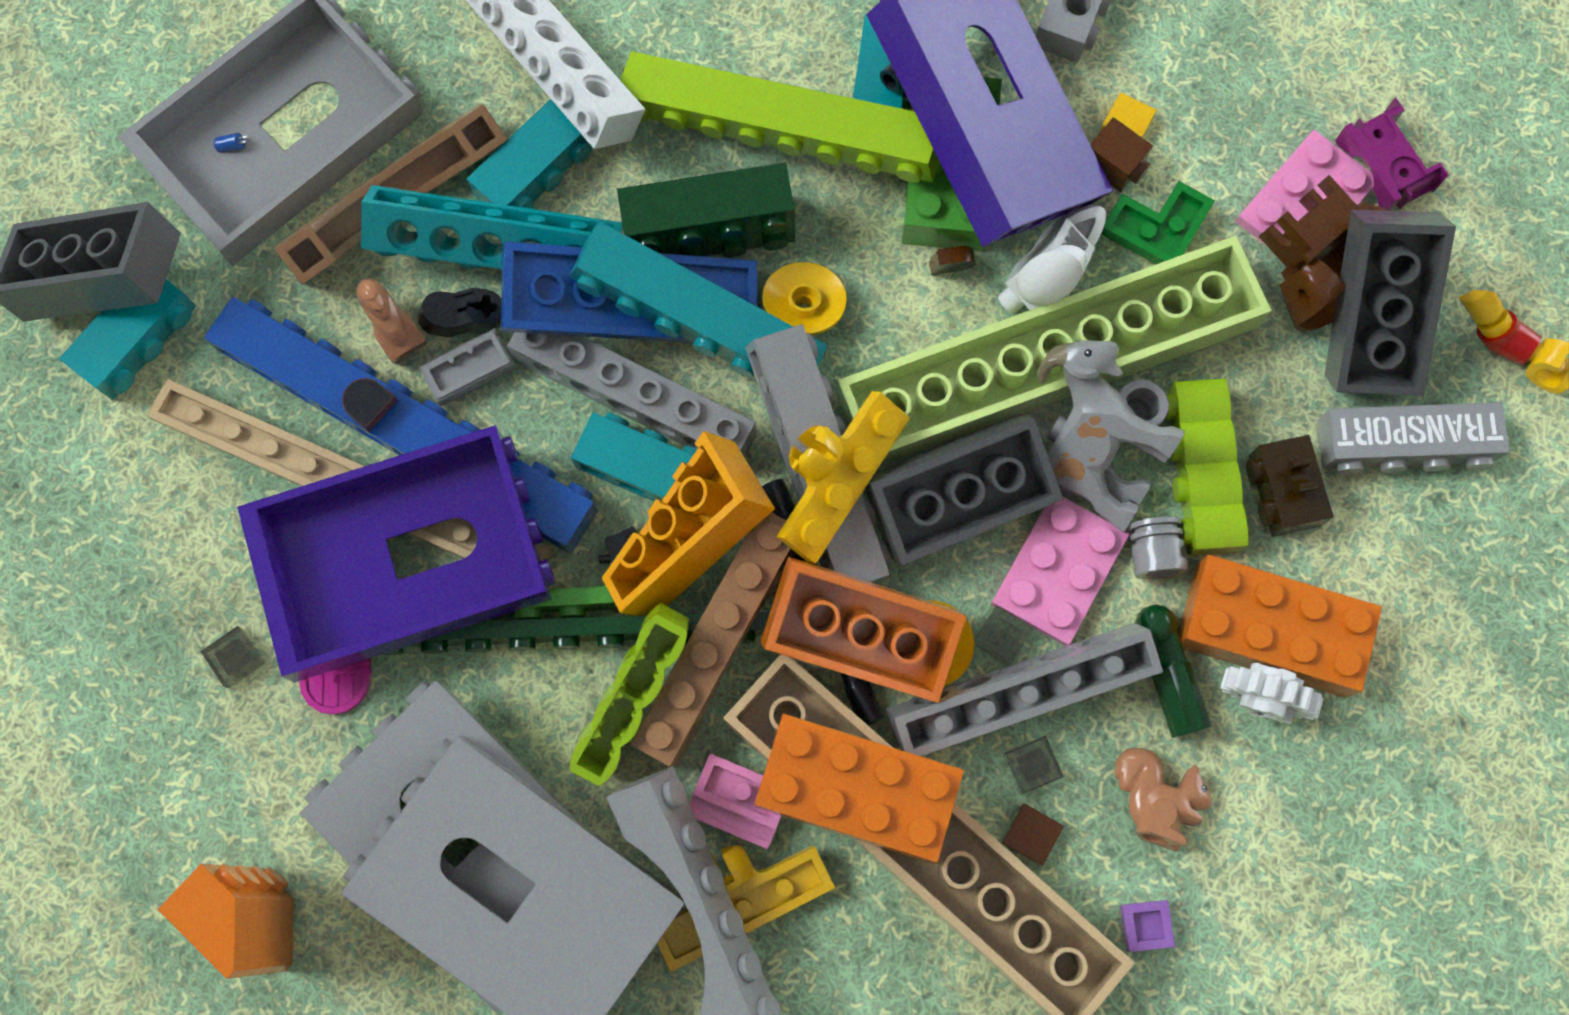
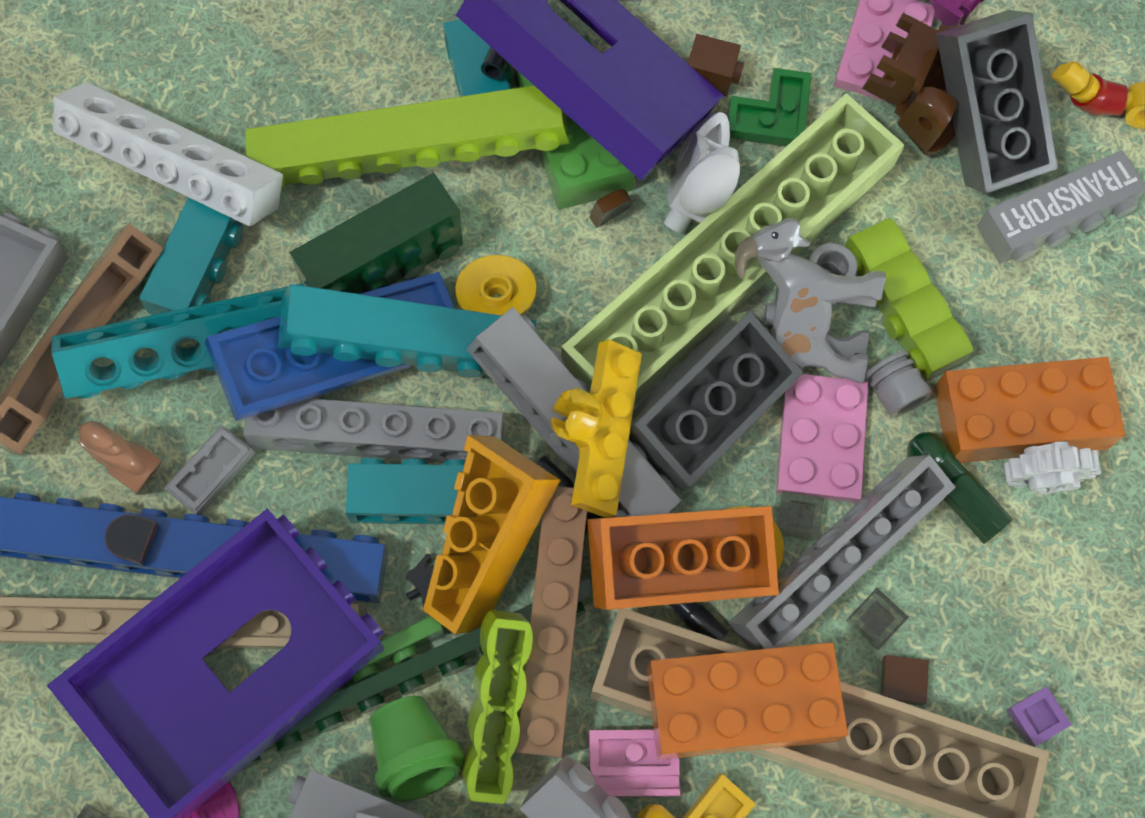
camera: 30 degrees left, 5 degrees down
(460, 312) = (182, 422): black piece -> none
(539, 702) = (412, 750): none -> bright green piece
(1131, 113) = (706, 24): yellow tile -> none
(1158, 807) = (999, 608): nougat animal -> none
(1289, 486) = (982, 288): dark brown brick -> none

